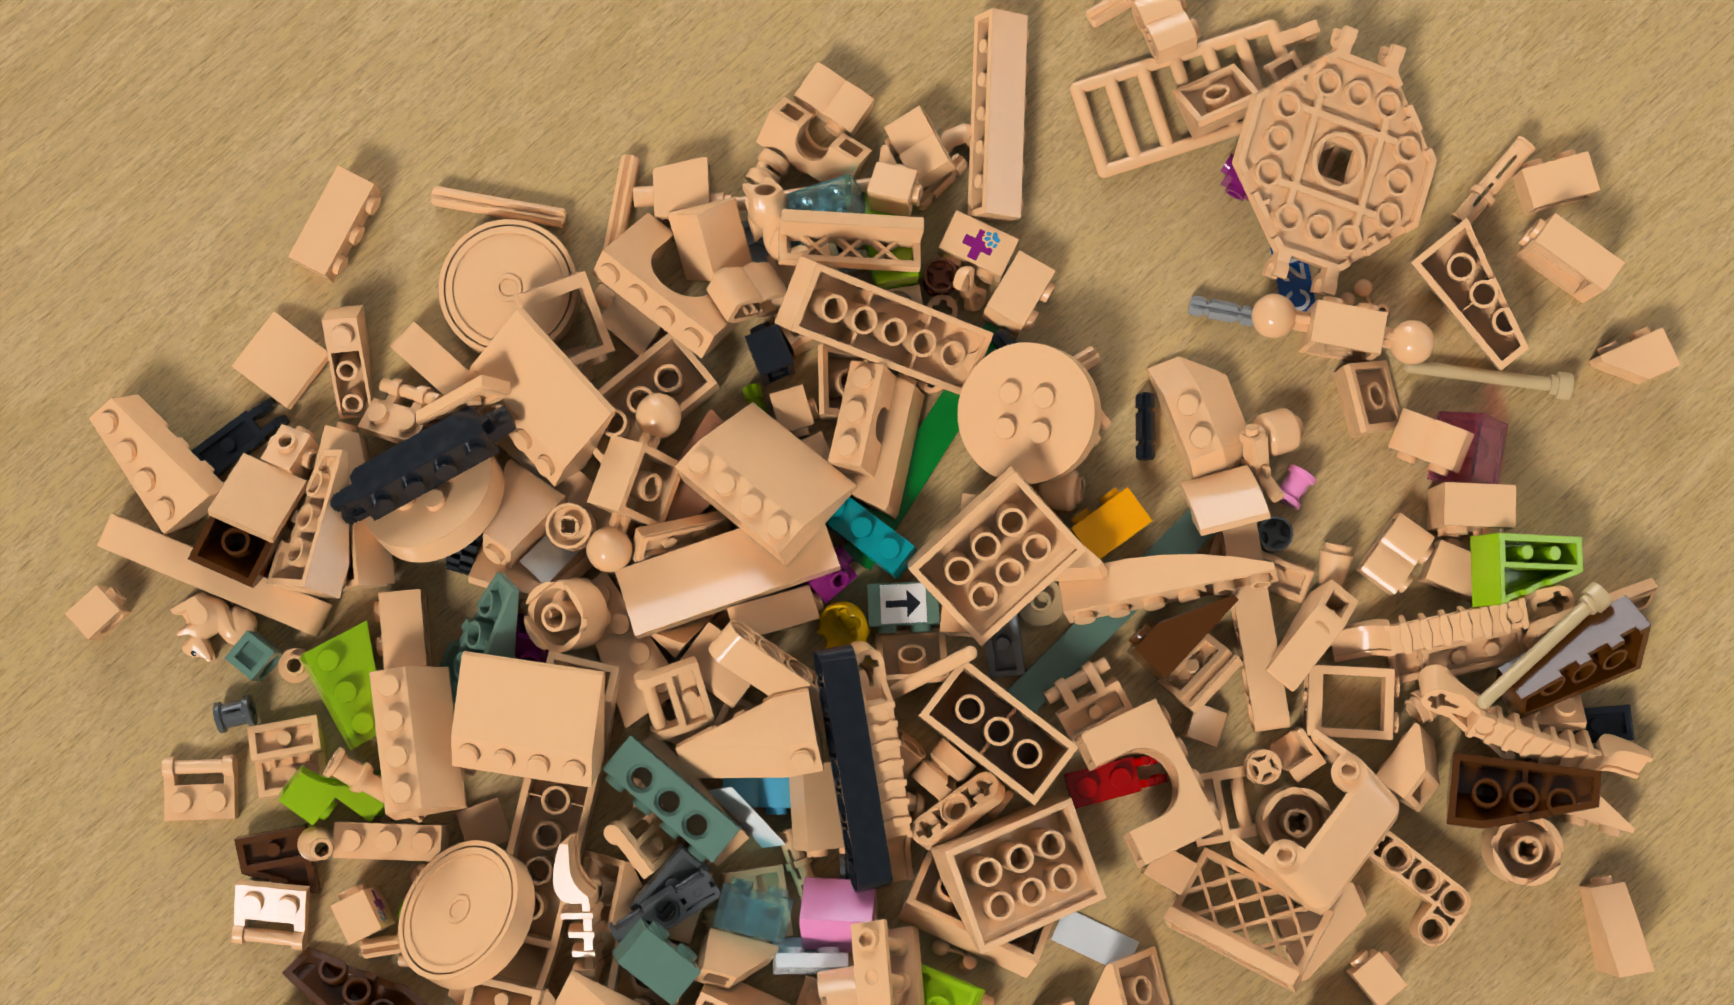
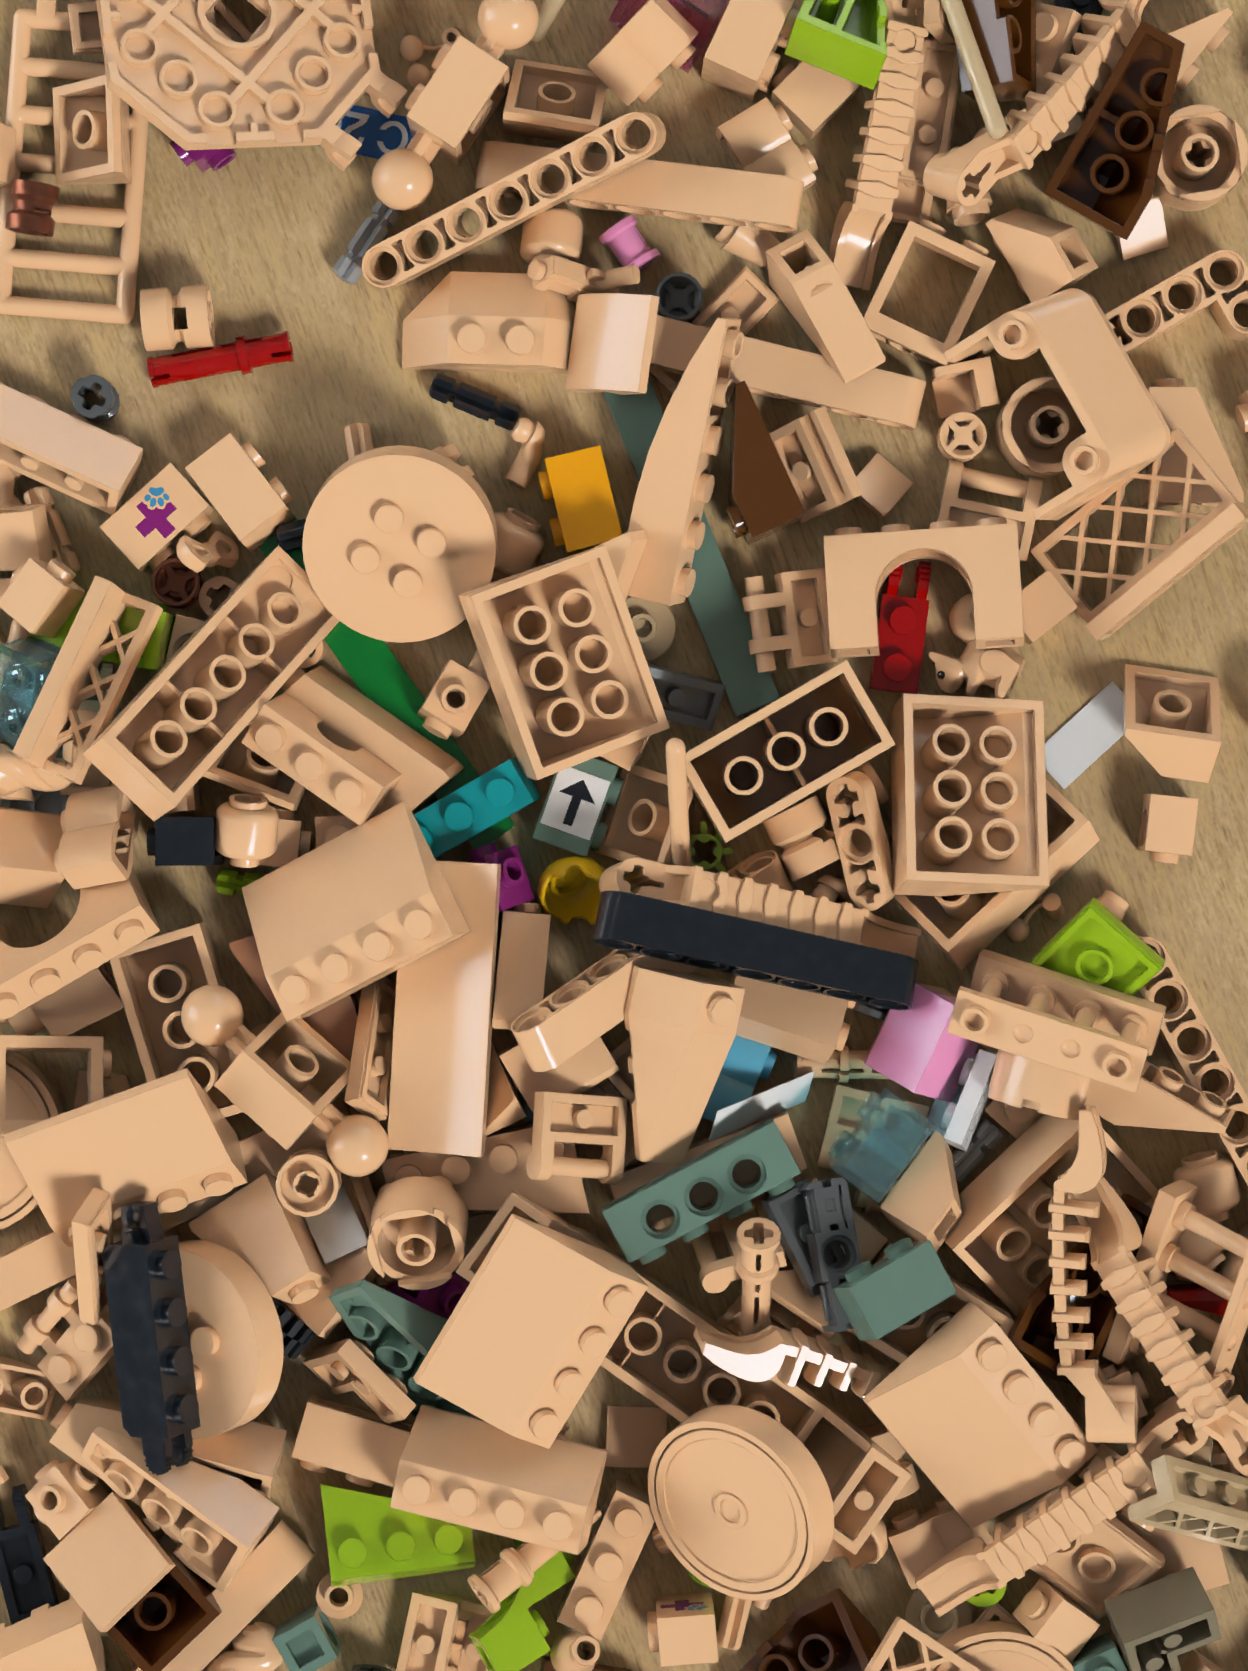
camera: 70 degrees left, 5 degrees up
(454, 607) = (350, 1367): none -> light nougat plate
(598, 871) = (756, 1317): none -> light nougat pin
(788, 983) = (984, 1137): none -> light grey axle
(793, 388) = (246, 830): none -> light nougat head
(909, 715) = (717, 850): none -> lime gear
(937, 492) = (452, 701): none -> light nougat brick
(1049, 170) = (93, 385): none -> dark grey bush
(1102, 247) = (225, 358): none -> red pin
(1111, 195) = (160, 318): none -> light nougat wheel
(1112, 849) = (978, 667): none -> light nougat animal
(1126, 478) = (530, 454): none -> light nougat arm
(1149, 81) = (32, 208): none -> copper wheel
(1298, 409) = (490, 204): none -> light nougat beam
(1338, 477) = (662, 189): none -> light nougat beam
(1454, 837) = (1147, 235): none -> light nougat slope

